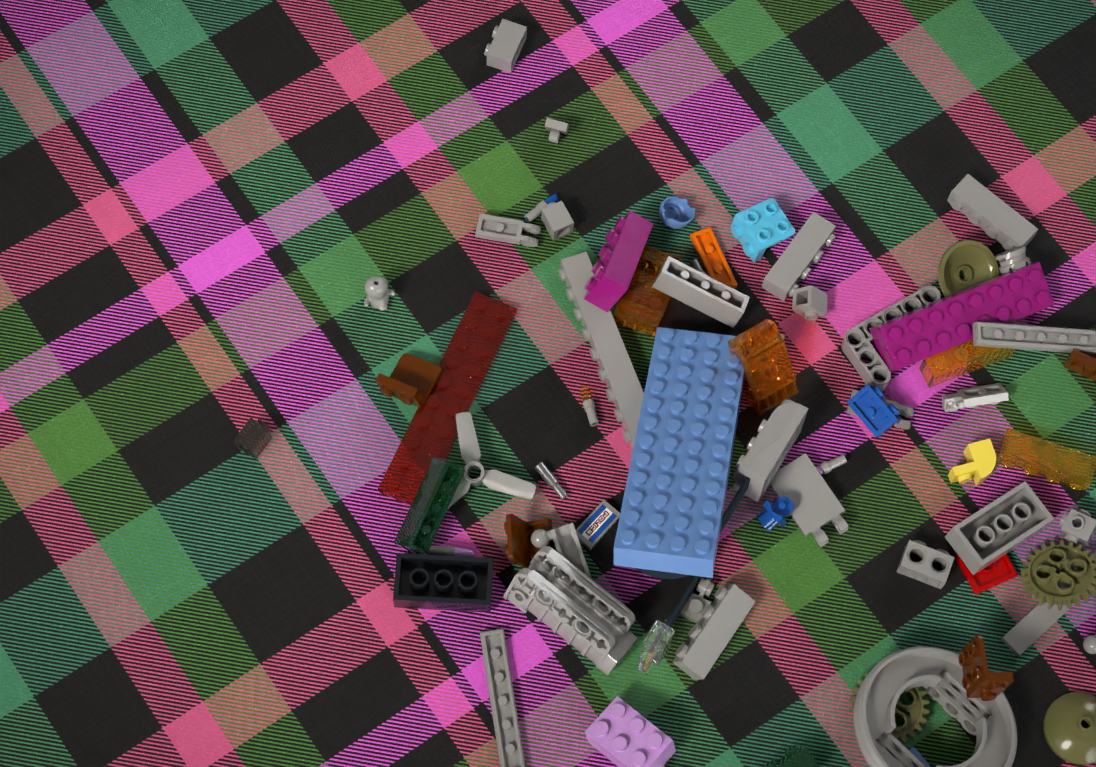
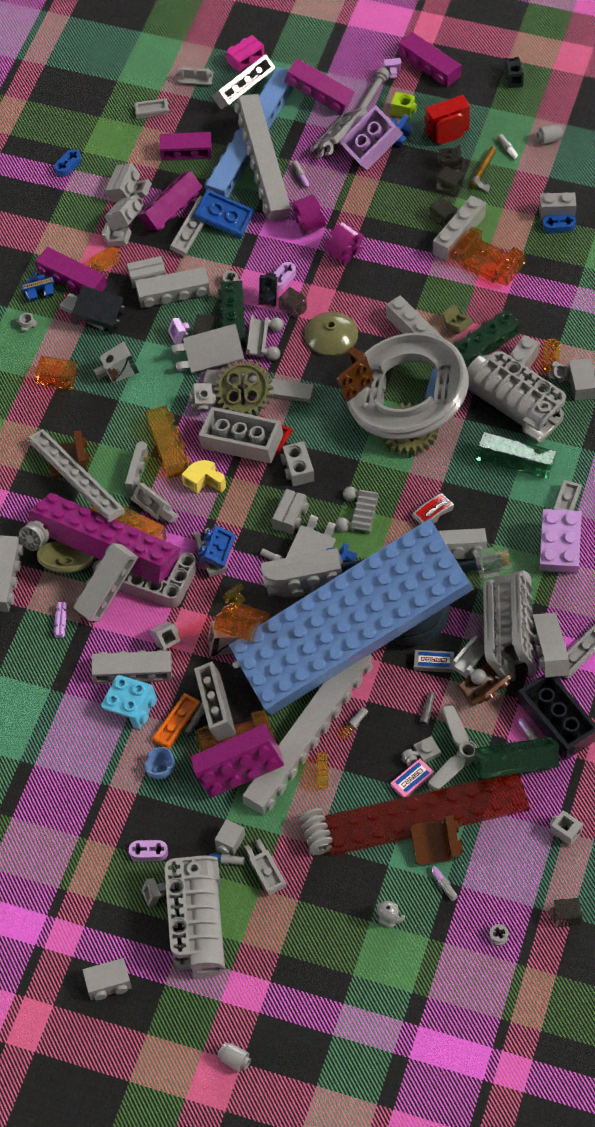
camera: 120 degrees left, 10 degrees down
(289, 376) = (501, 929): none -> light grey bush
(325, 495) = (566, 821): none -> light grey brick
(358, 92) = (234, 1057): none -> light grey brick
(370, 364) = (444, 883): none -> light grey piece
(491, 413) = (412, 778): none -> tile
(502, 139) = (198, 915): none -> light grey piece
(505, 291) = (314, 831): none -> light grey piece
(510, 445) = (425, 750): none -> light grey plate
(519, 629) = (550, 645): none -> light grey brick
(561, 341) = (322, 770): none -> clear yellow beam
(597, 150) = (148, 850): none -> lavender beam
(769, 654) = (433, 509): none -> slope
(810, 396) = (234, 594): none -> clear yellow tile
(819, 588) = (363, 512): none -> light grey gear
(870, 514) = (289, 512): none -> light grey brick
(902, 234) = (60, 619): none -> lavender axle
(905, 279) = (105, 582): none -> light grey brick
(1034, 409) = (137, 465): none -> light grey plate

